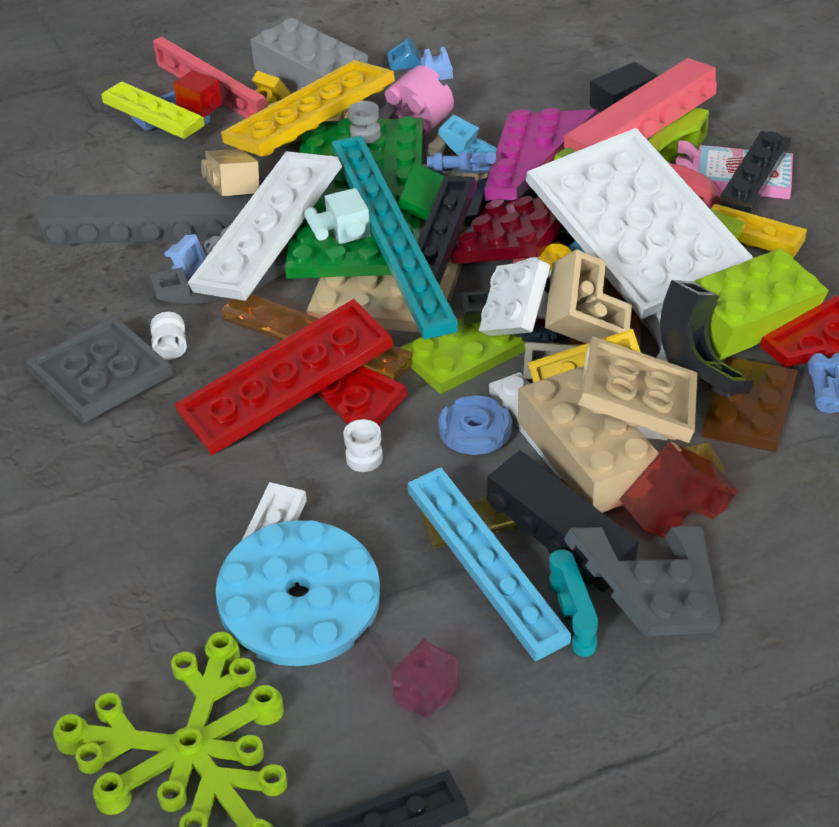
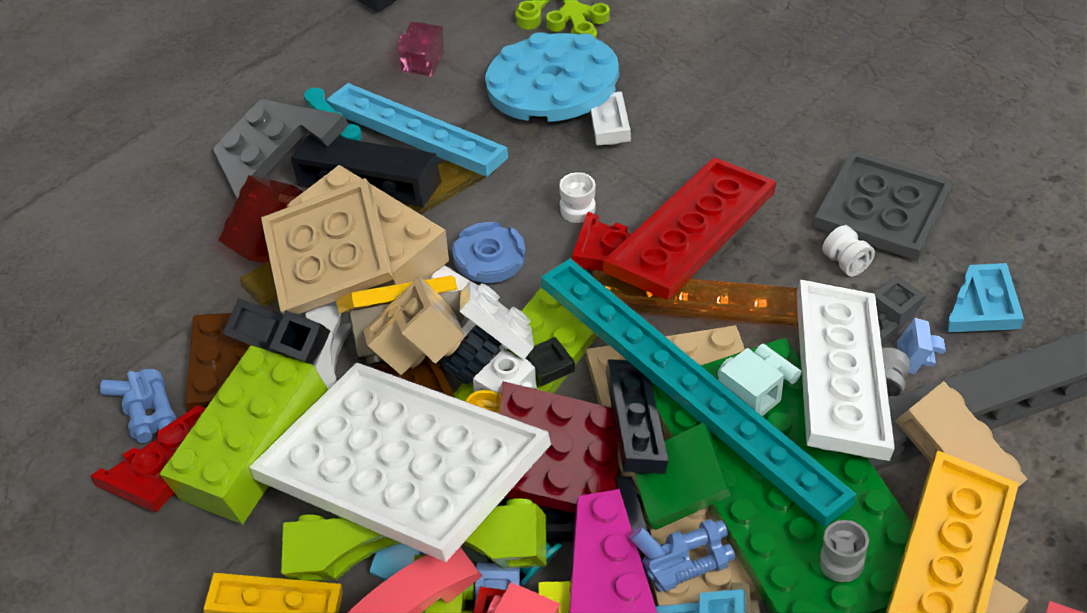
camera: 155 degrees right, 5 degrees up
(101, 277) = (986, 301): none -> medium azure wing

